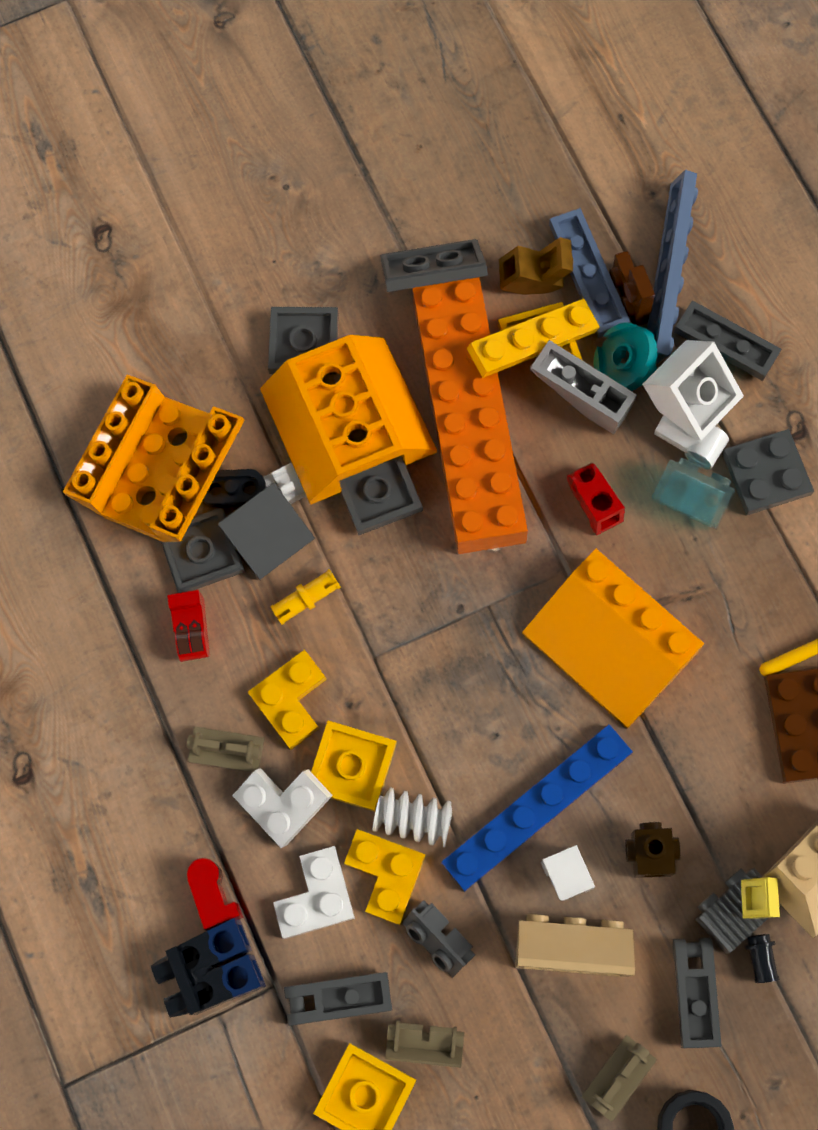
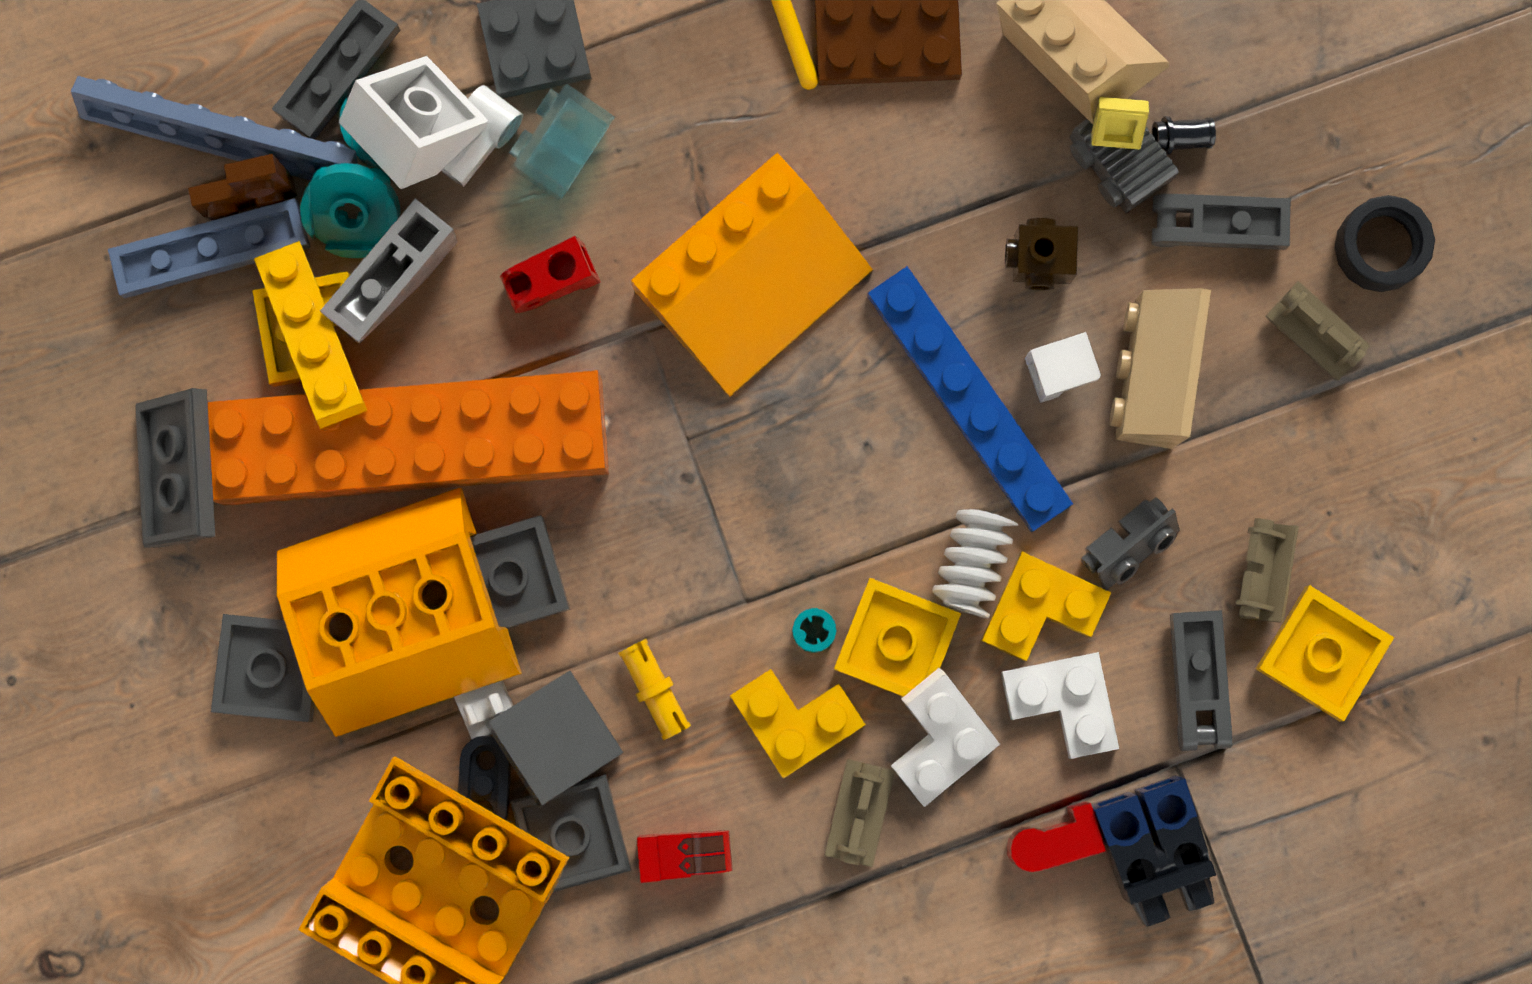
camera: 90 degrees left, 10 degrees up
(350, 696) = (828, 625): none -> teal bush
(535, 271) = (199, 320): pearl gold brick -> none

